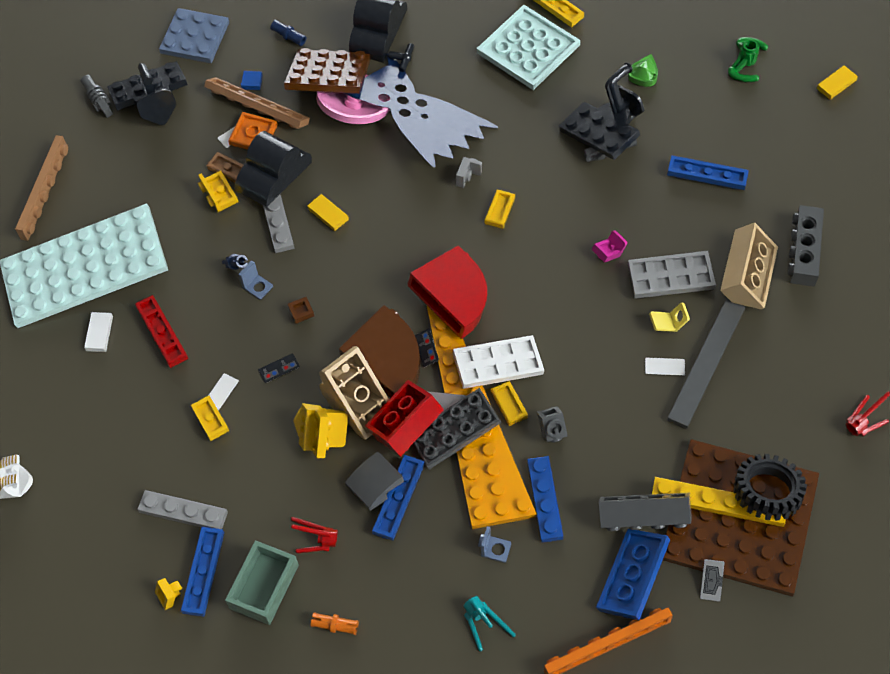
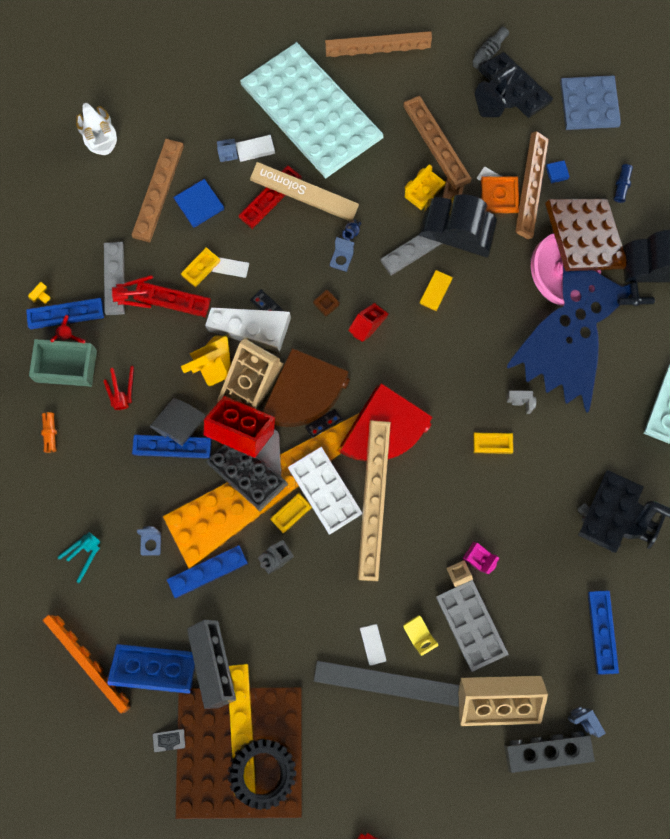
camera: 70 degrees right, 15 degrees up
(93, 358) = (227, 152): none -> sand blue bracket
(100, 440) = (157, 190): none -> medium nougat plate
(135, 402) = (199, 203): none -> blue tile
(171, 296) = (304, 191): none -> tan tile
(175, 165) = (437, 142): none -> medium nougat plate
(208, 500) = (120, 293): none -> red plant
(227, 575) = (64, 332): none -> red plant
(233, 456) = (173, 299): none -> red plate
(297, 385) = (260, 327): none -> white wedge
(338, 278) = (367, 322): none -> red slope
(524, 318) = (373, 501): none -> tan tile
(618, 269) = (459, 573): none -> tan plate
(786, 202) = (588, 721): none -> sand blue bracket

